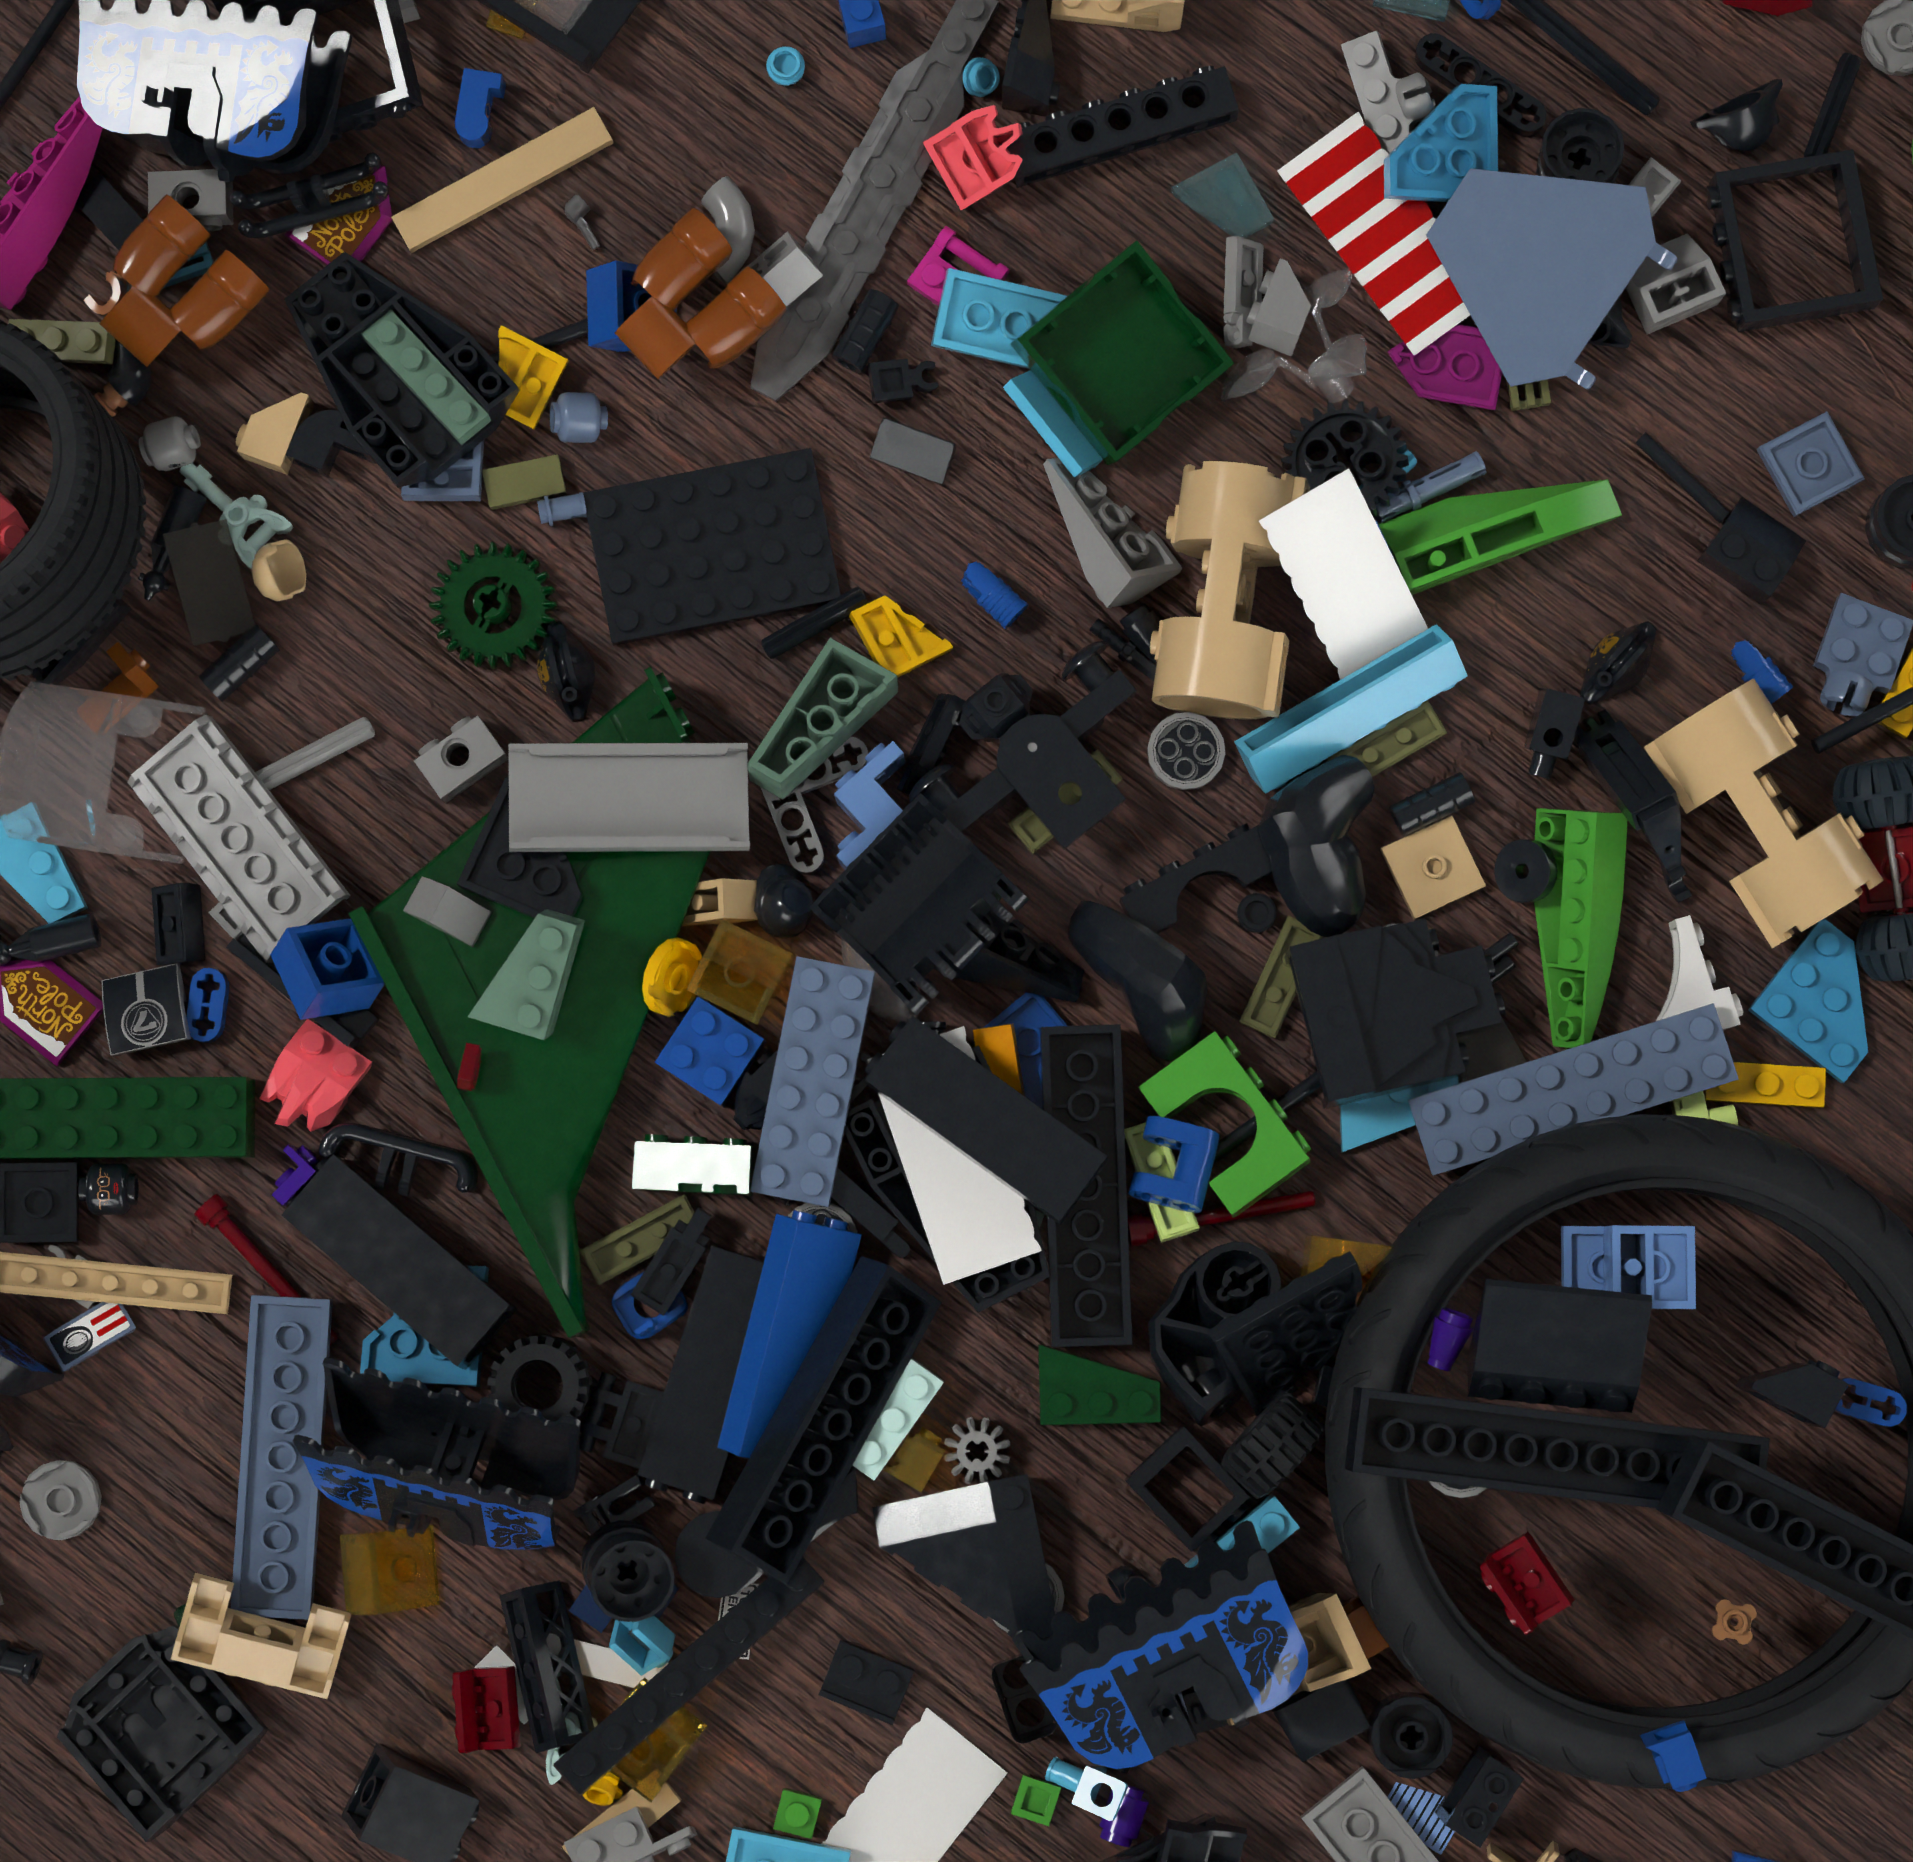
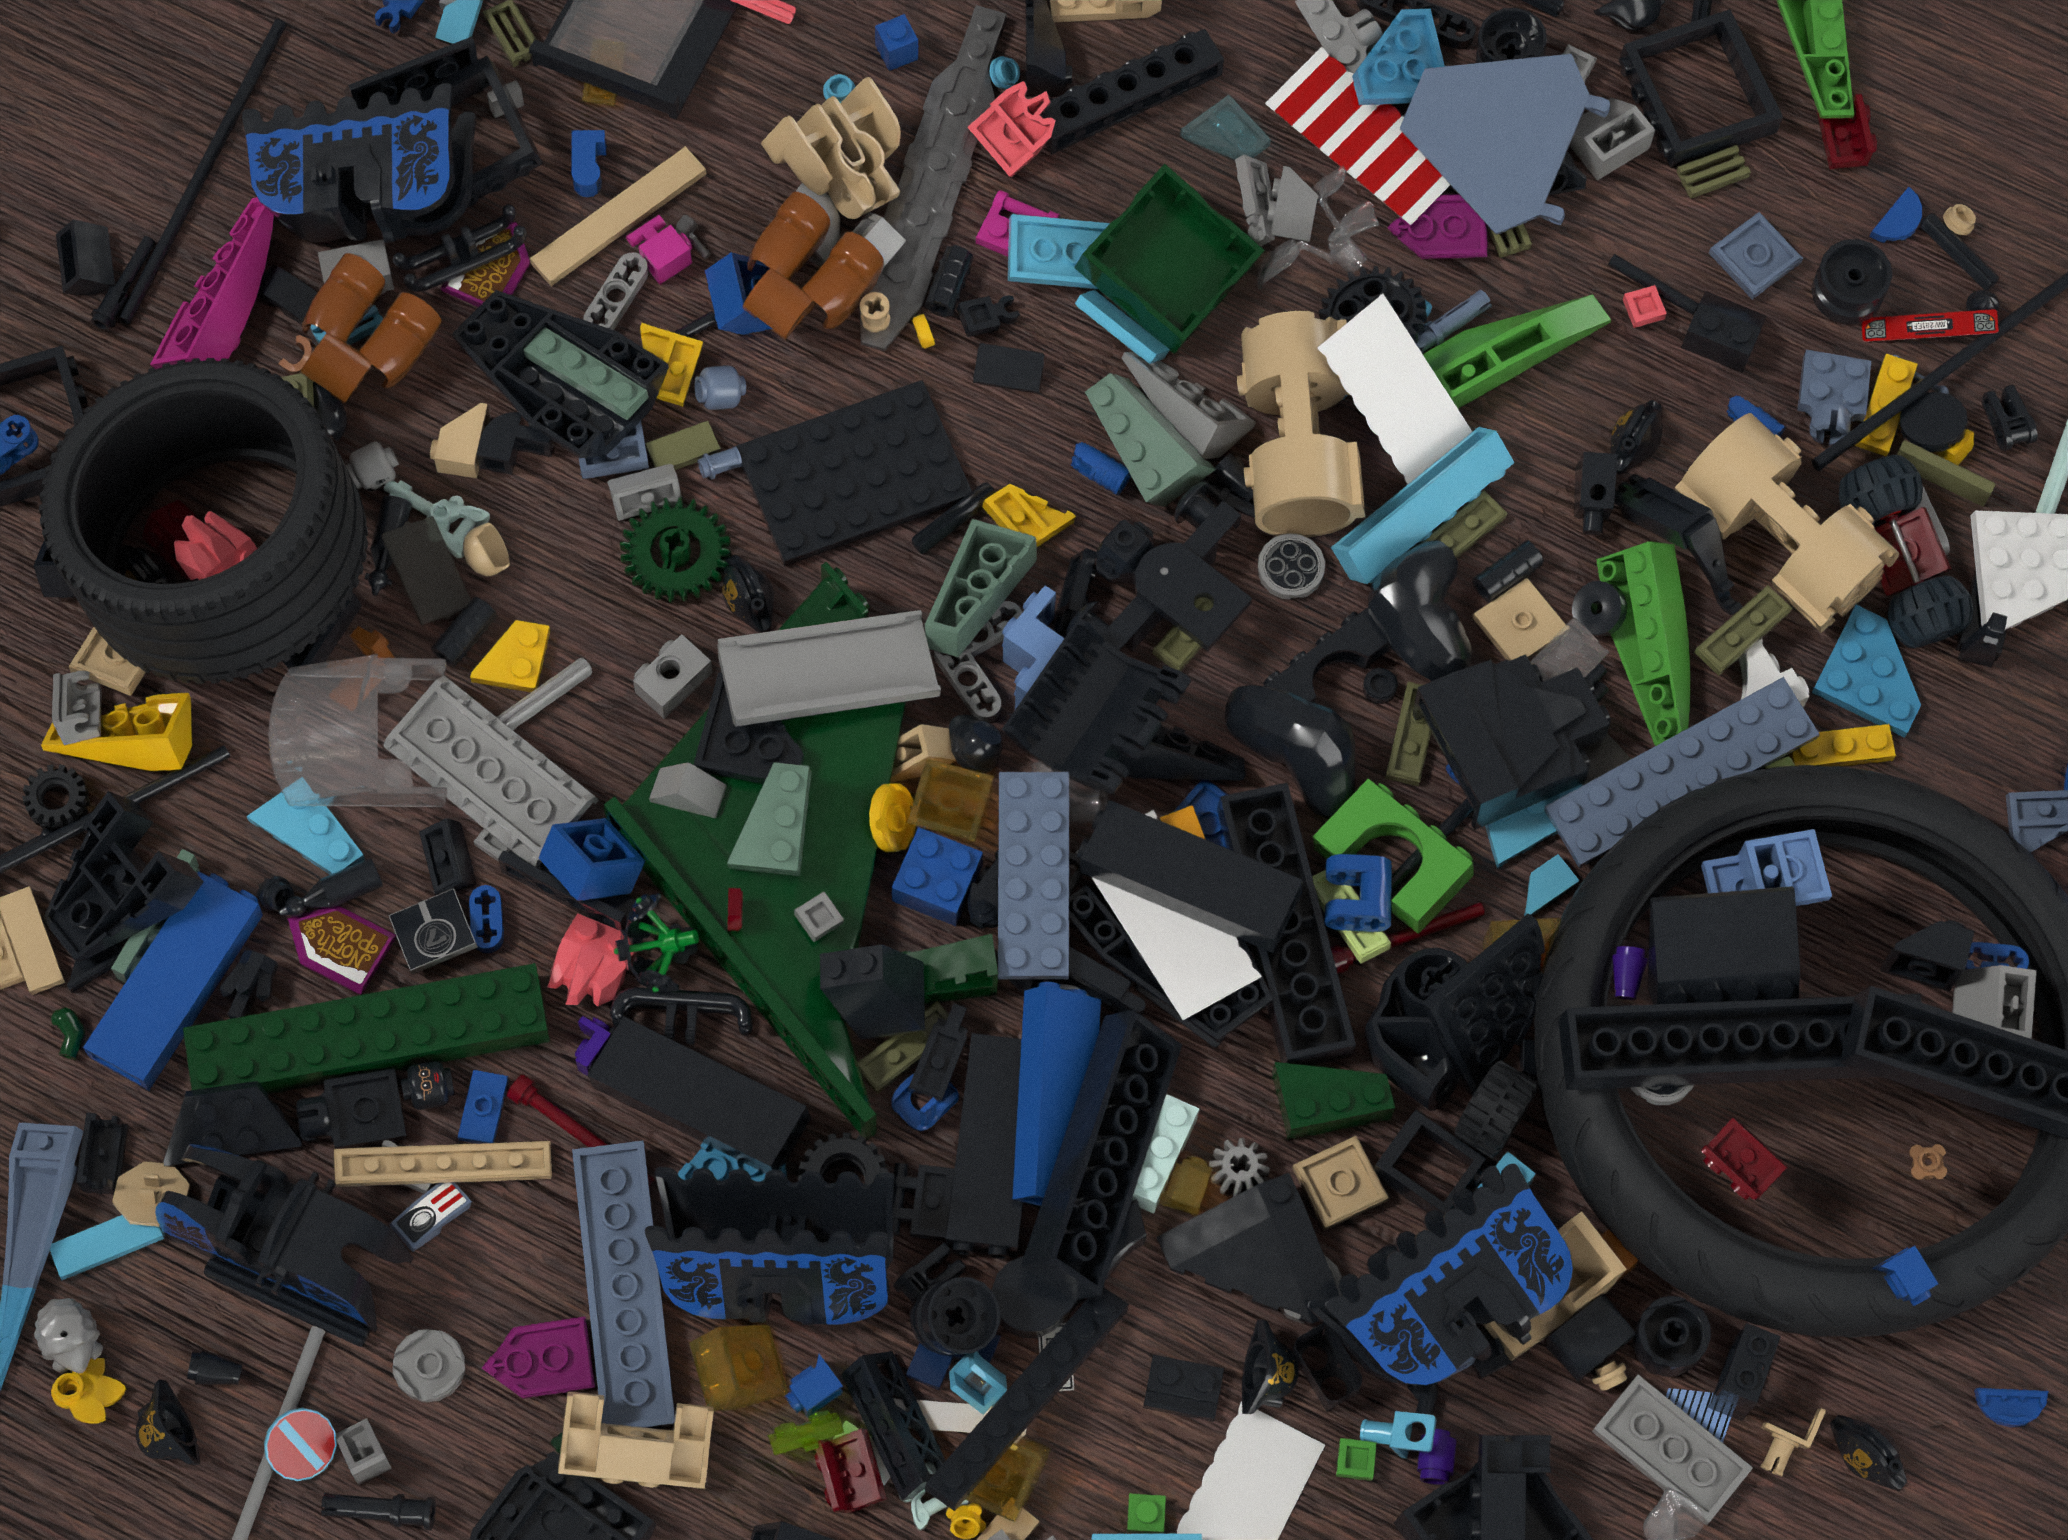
camera: 20 degrees left, 15 degrees down
(167, 1222) = (483, 1107): none -> blue plate
(185, 1518) = (544, 1359): none -> magenta tile
(292, 702) = (515, 659): none -> yellow wing
(374, 1100) = (673, 943): none -> plant
(447, 1659) = (819, 1427): none -> clear neon green plate
(465, 1608) = (813, 1388): none -> blue window
(471, 524) = (641, 488): none -> light grey slope
(507, 263) = (616, 280): none -> light grey beam
(544, 236) = (664, 251): none -> dark pink brick
(563, 1089) = (819, 916): none -> light grey plate
(610, 1186) = (875, 990): none -> black slope
(770, 346) = (870, 304): none -> tan bush
(801, 135) = (842, 149): none -> tan piece
(823, 388) = (923, 331): none -> yellow tile
(959, 1687) = (1268, 1370): none -> black hat
(1048, 573) = (1146, 441): none -> sand green wedge
(1085, 1487) = (1340, 1183): none -> tan plate
(1333, 1761) = (1609, 1375): none -> tan plate
(1393, 1184) = (1548, 884): none -> medium azure tile
(1477, 919) = (1568, 650): none -> clear plate
(1664, 505) = (1644, 306): none -> coral plate
(1683, 932) = (1743, 630): none -> olive tile
(1817, 341) = (1708, 161): none -> olive tile
(1852, 1462) = (1997, 997): none -> light grey slope

